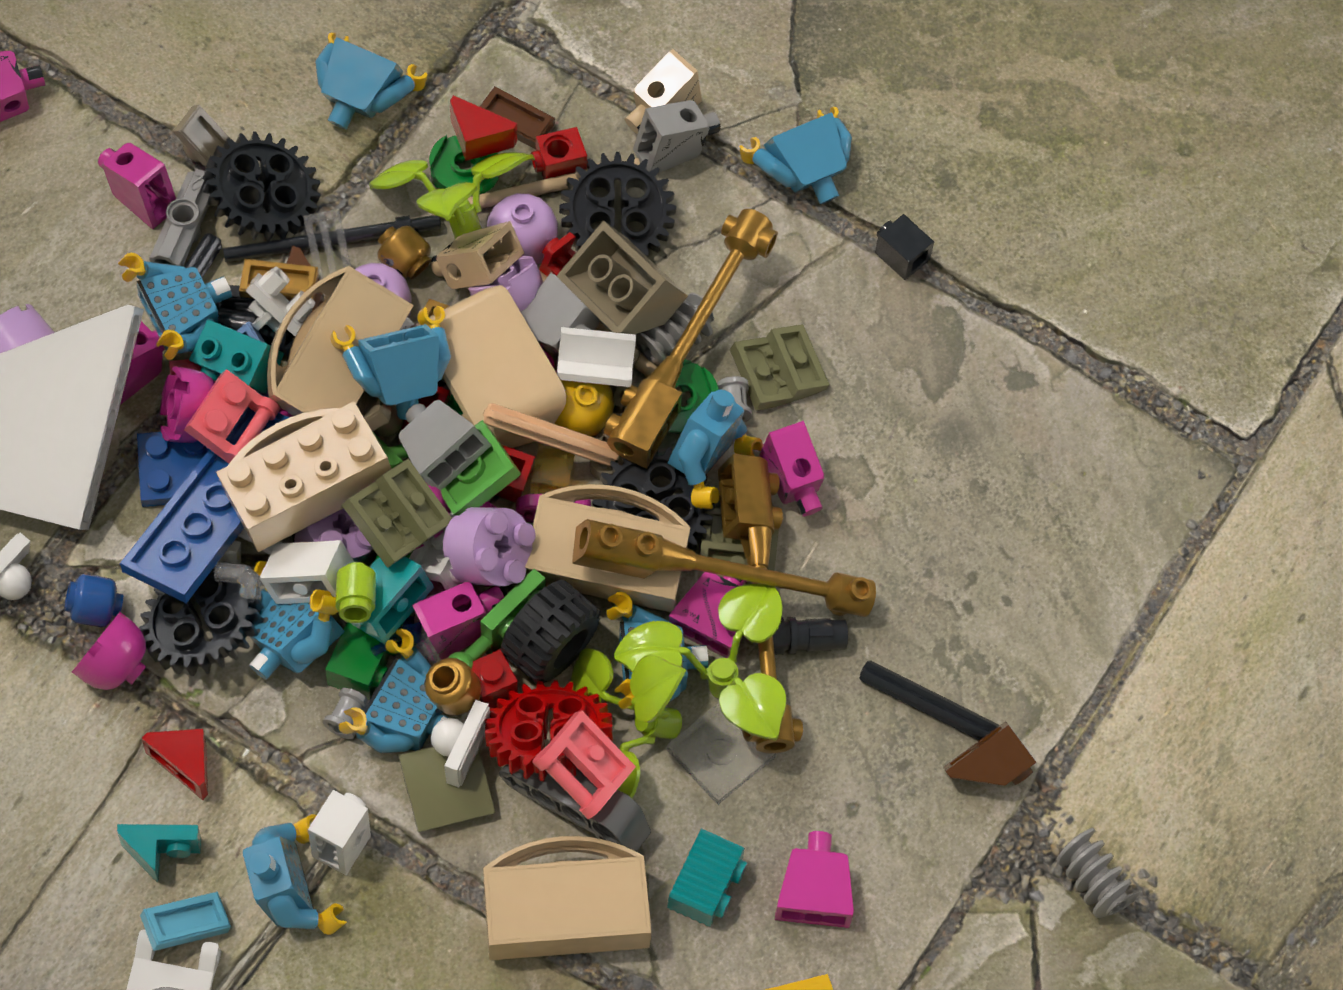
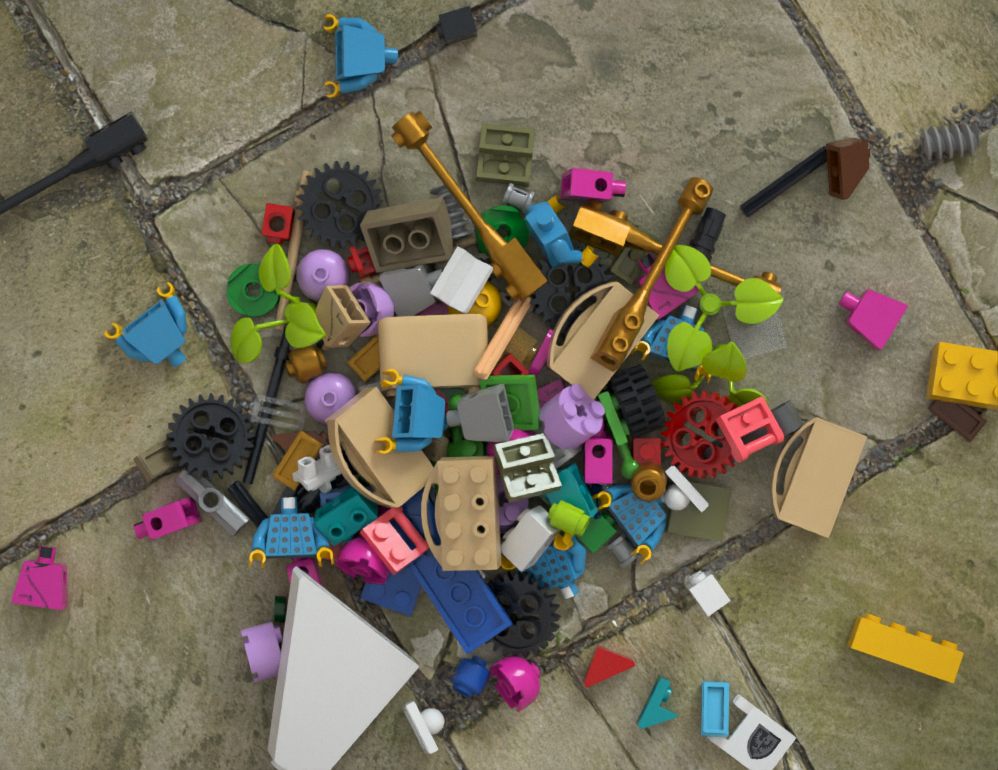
camera: 60 degrees left, 25 degrees up
(241, 575) = (511, 578): clear arm -> none
(280, 880) = (715, 641): dark azure torso -> none
(480, 130) = (239, 272): red slope -> none
(529, 120) = (229, 237): reddish brown tile -> none
(666, 83) = (263, 119): torso -> none
(673, 134) = (301, 137): light grey torso -> none
(707, 877) = (837, 380): teal brick -> none

